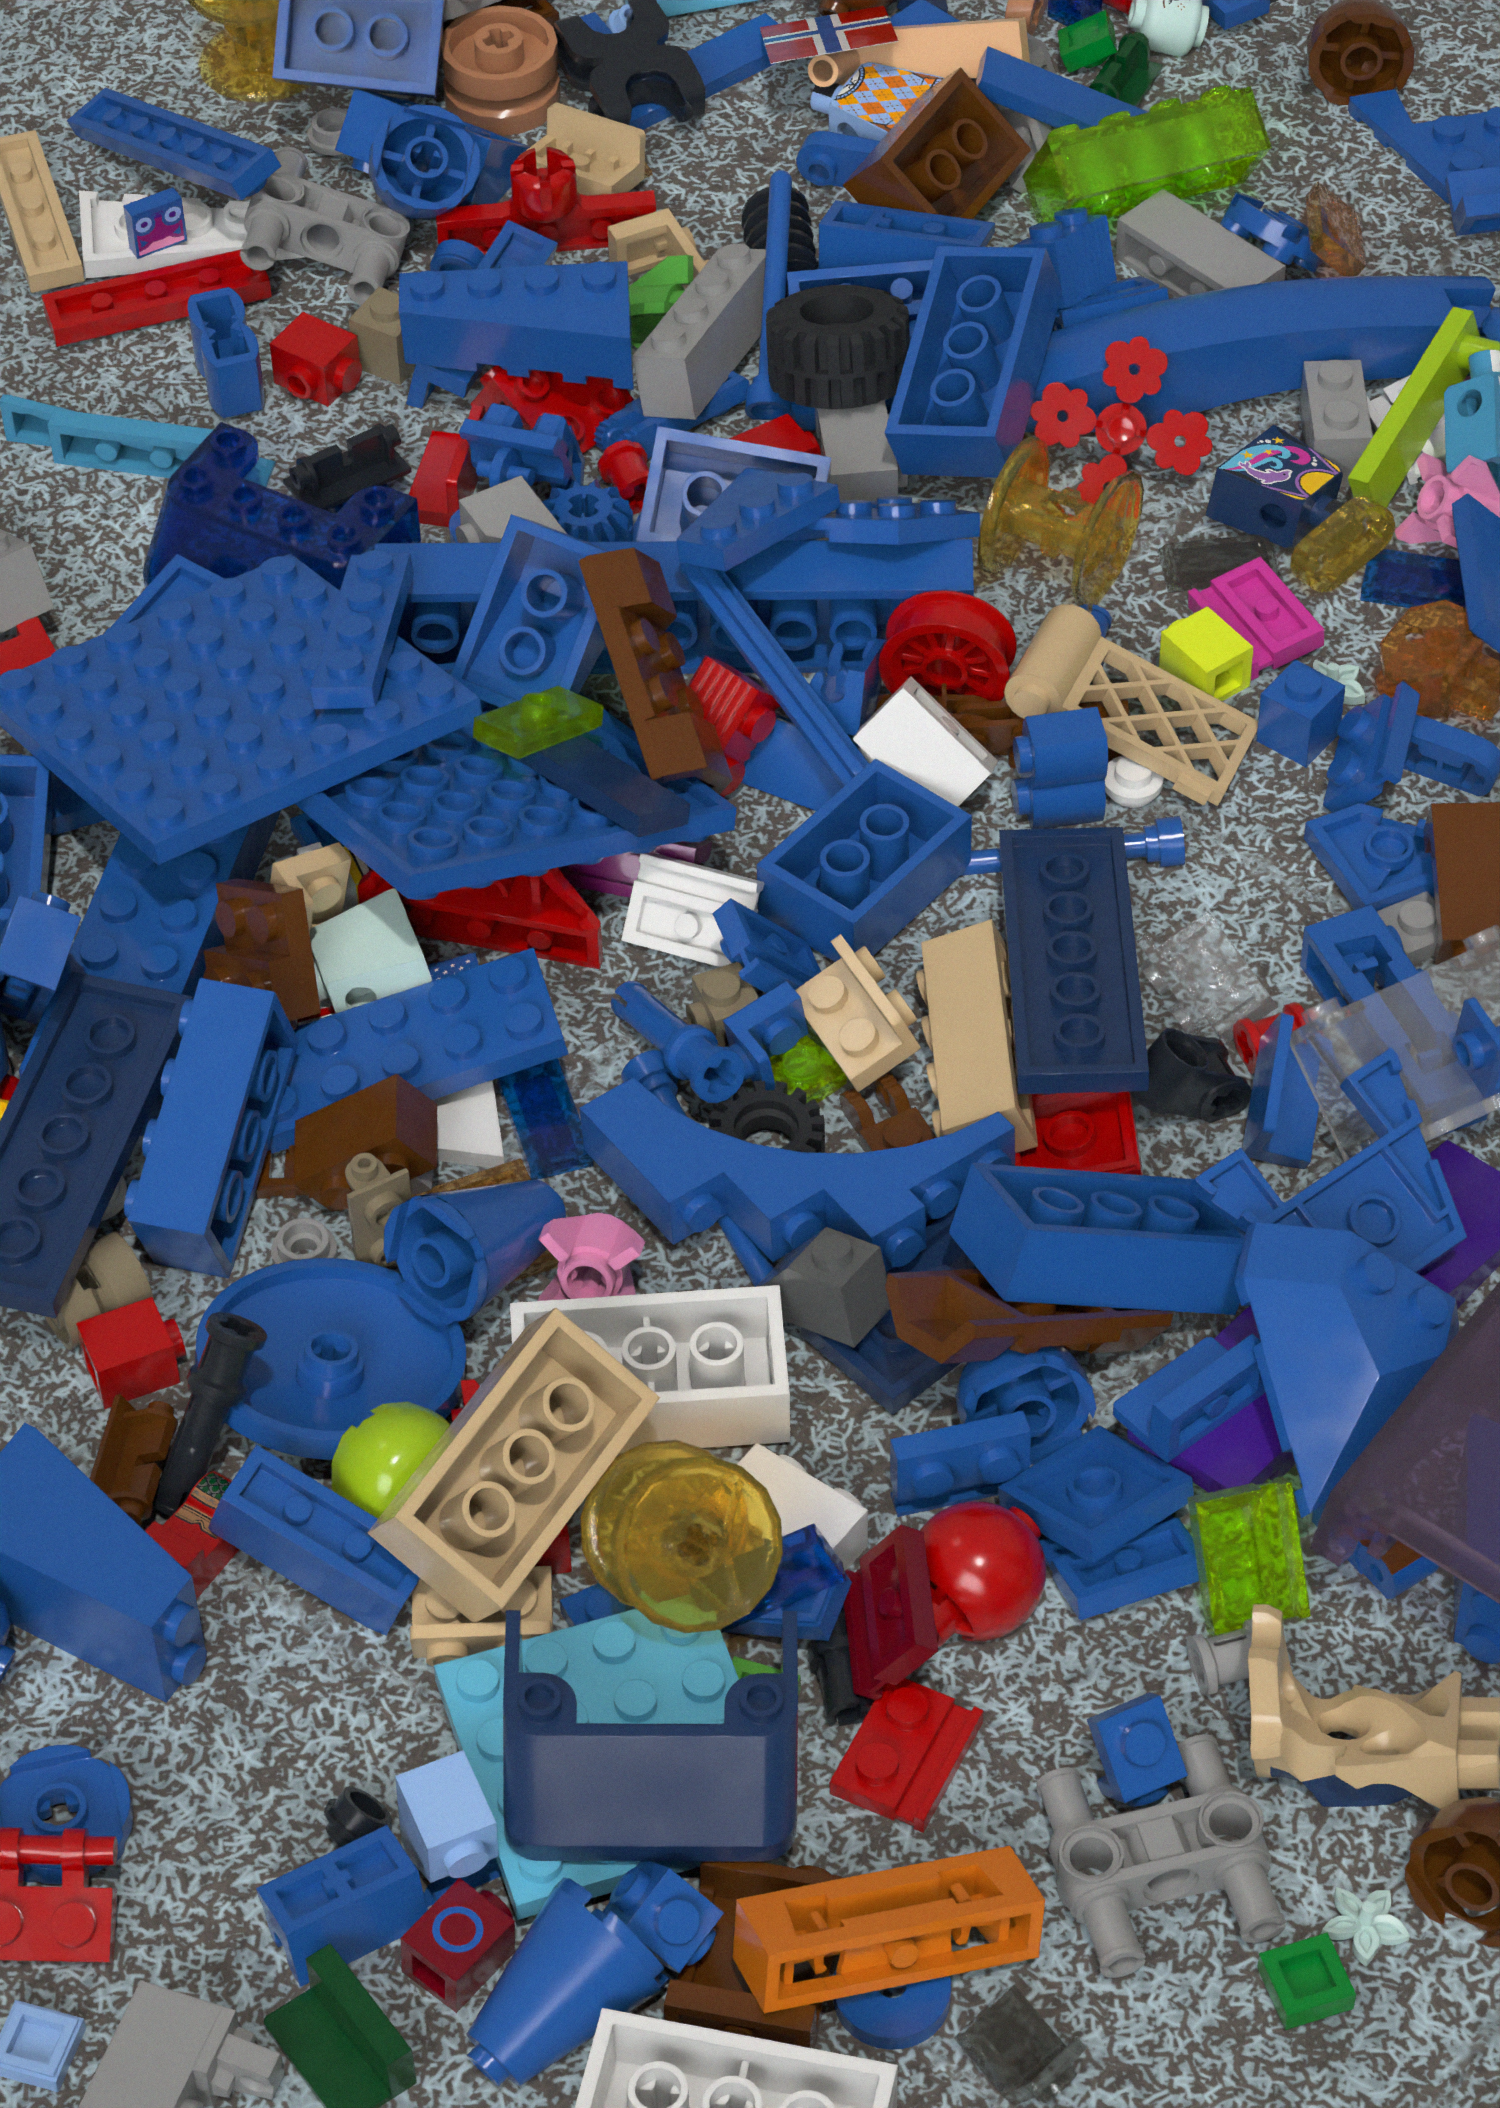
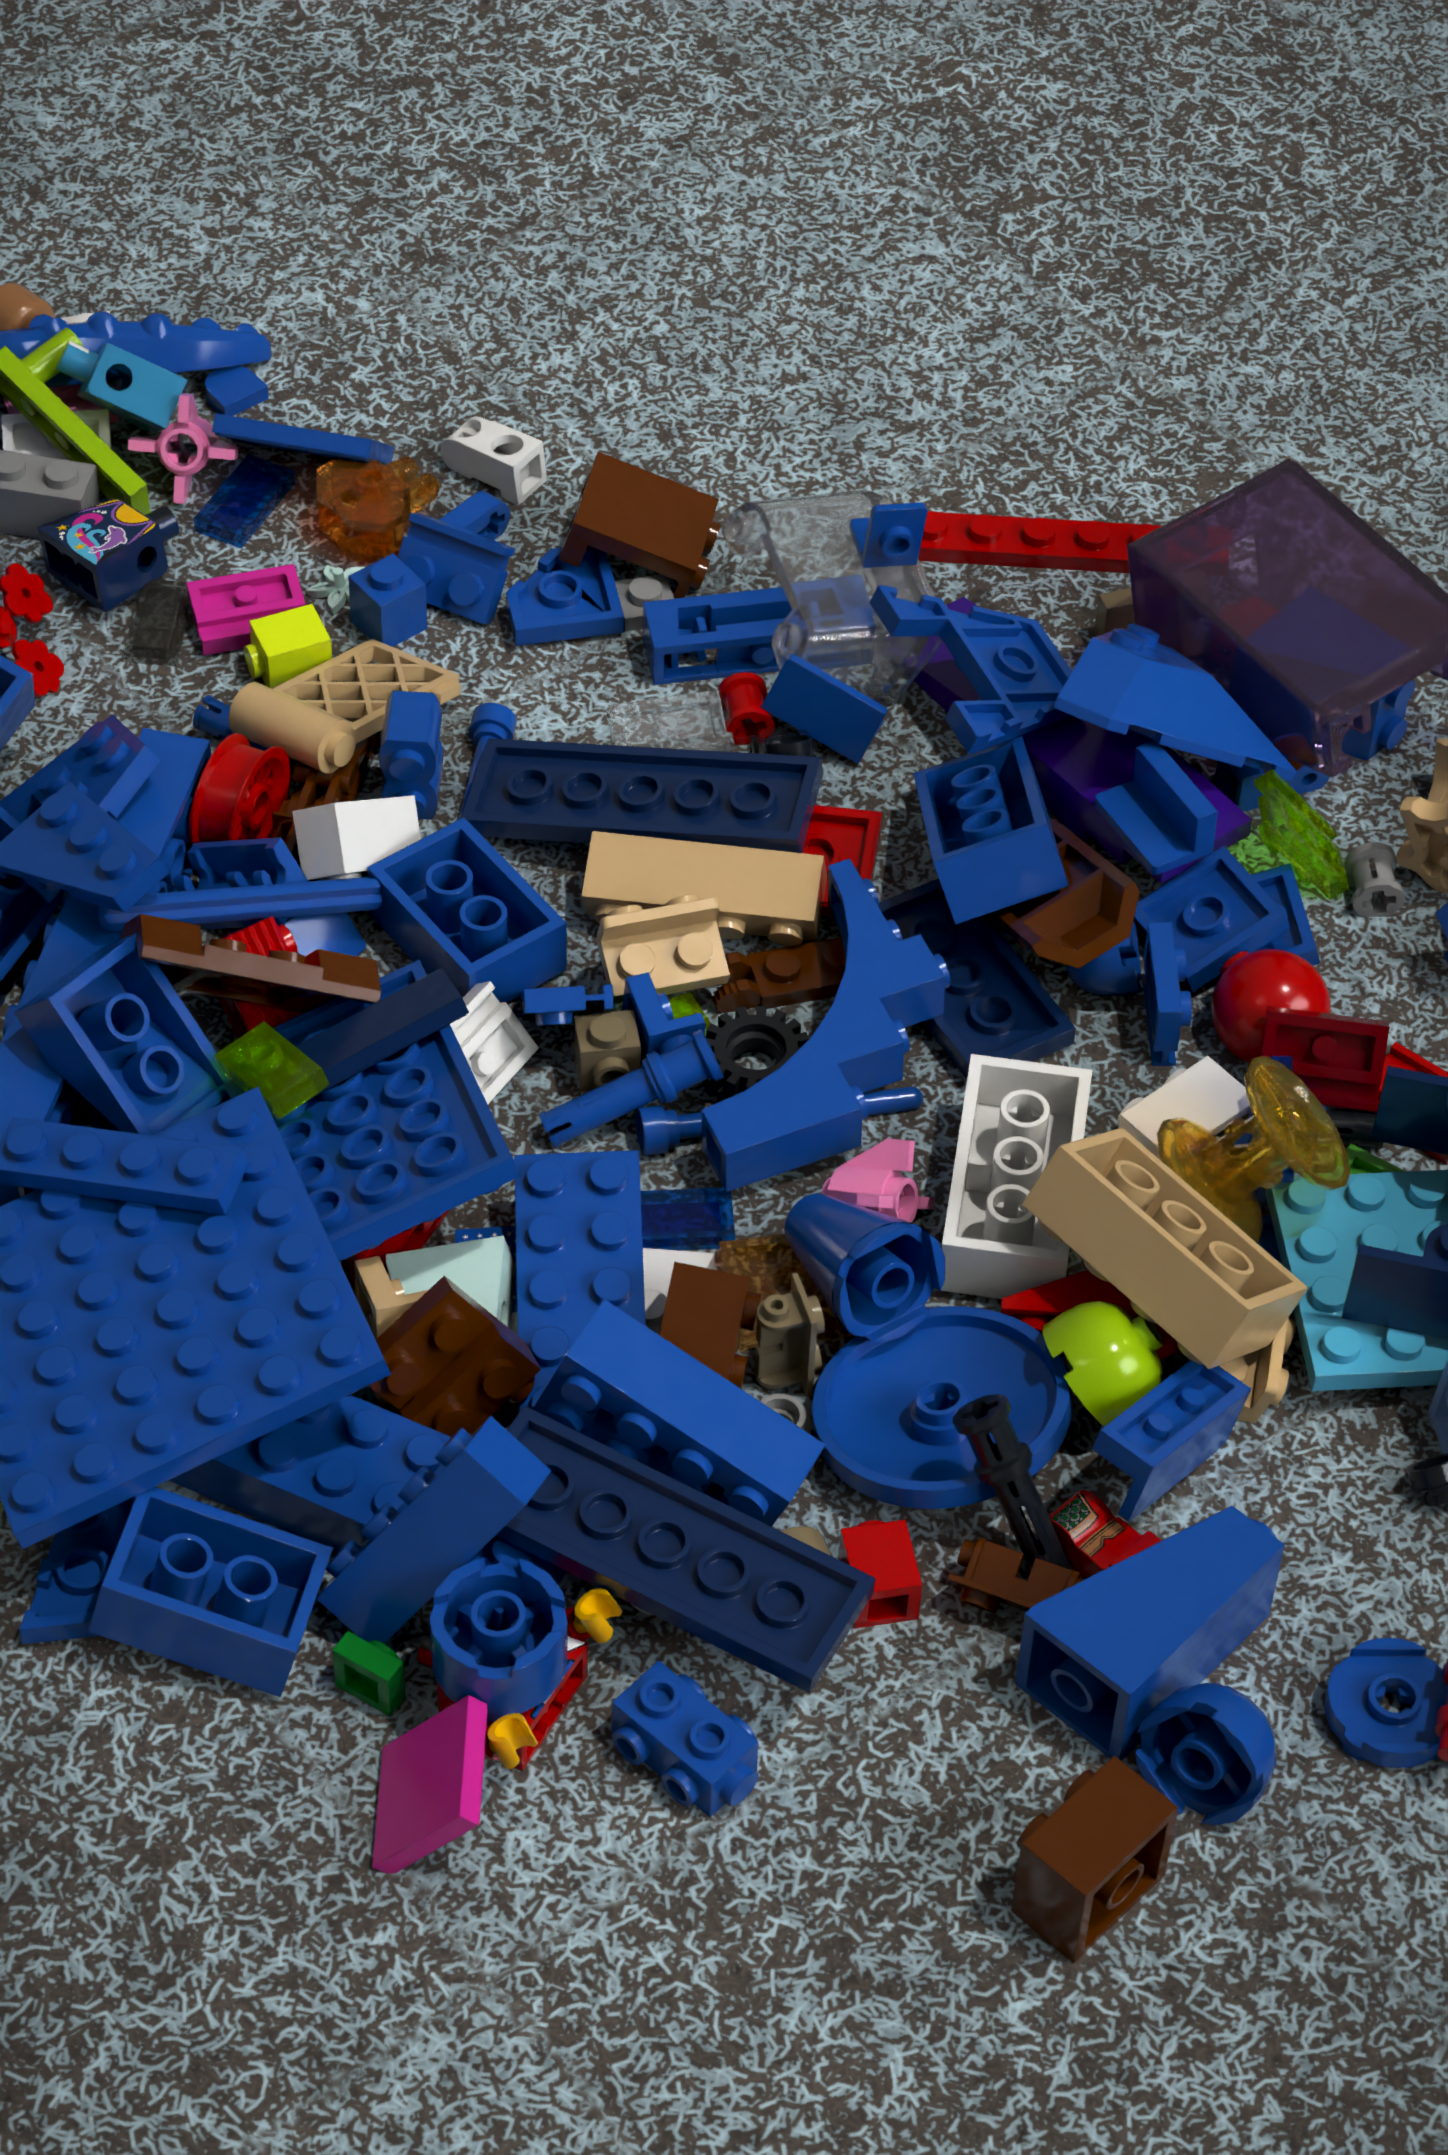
camera: 80 degrees left, 0 degrees up
(832, 1286) = (964, 1019): dark grey slope -> none
(1029, 511) = (139, 665): clear yellow piece -> none
(1342, 544) = (195, 527): clear yellow beam -> none

